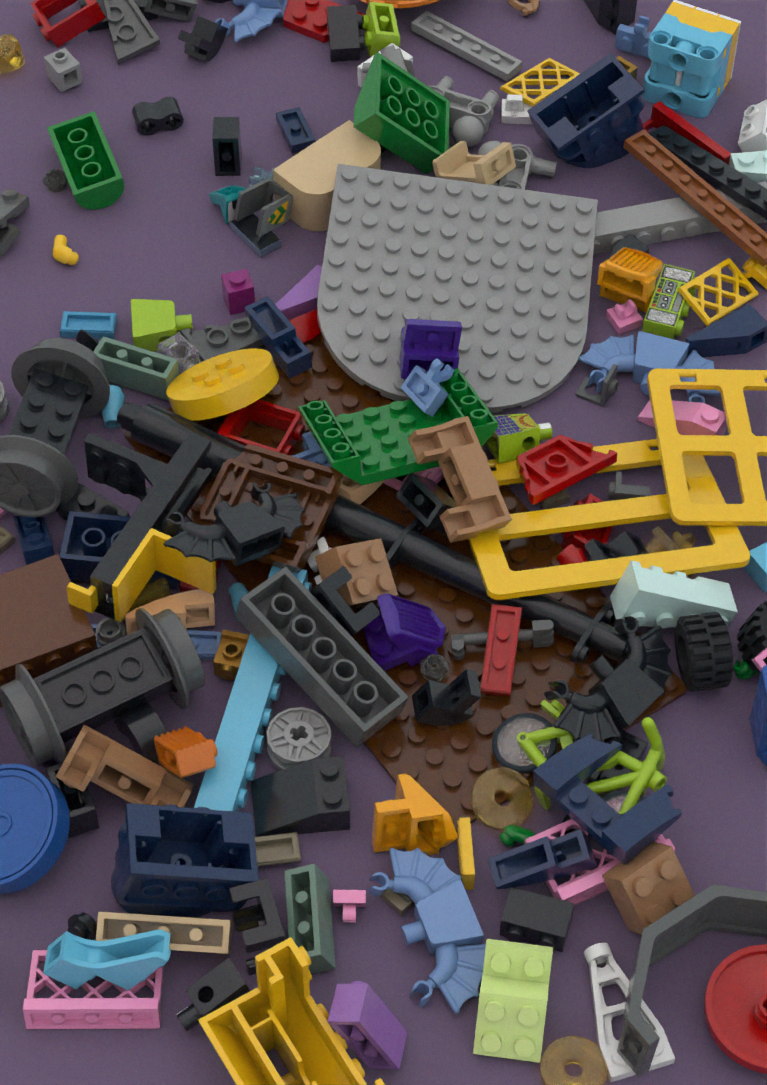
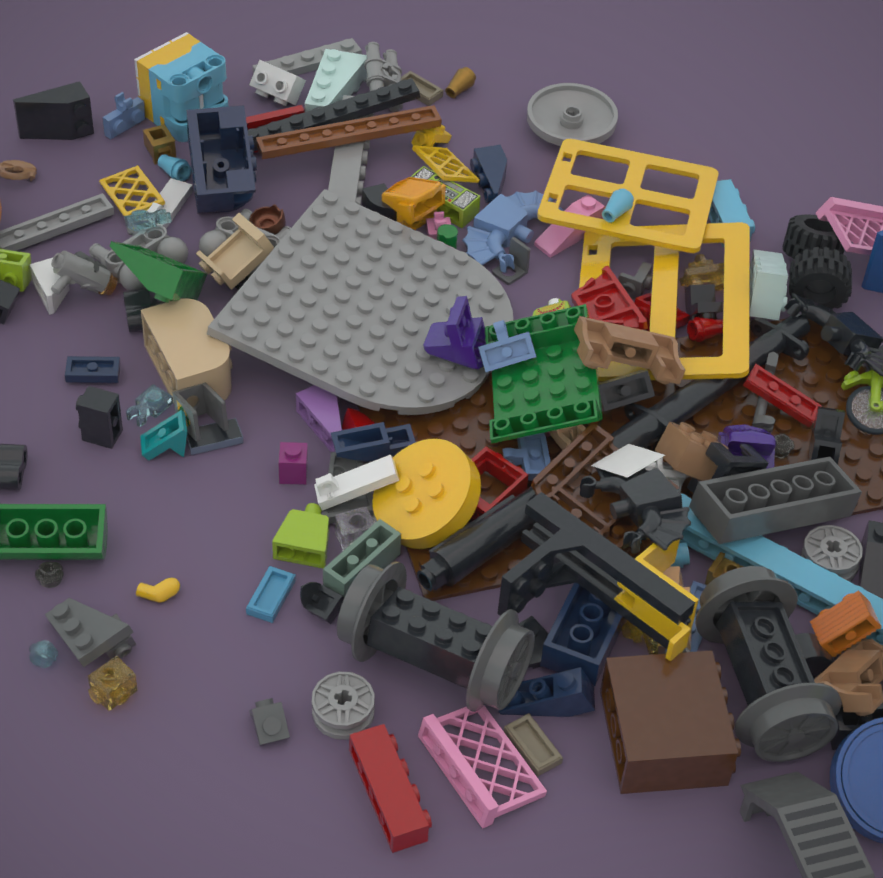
camera: 75 degrees left, 5 degrees down
(218, 331) = (356, 482): none -> white hinge
(301, 510) = (628, 460): none -> white sticker
(489, 94) = (143, 219): none -> clear light blue plate
(550, 181) = (268, 219): none -> copper hair
(602, 323) = (448, 234): none -> green piece
(696, 429) = (618, 204): none -> medium azure cone

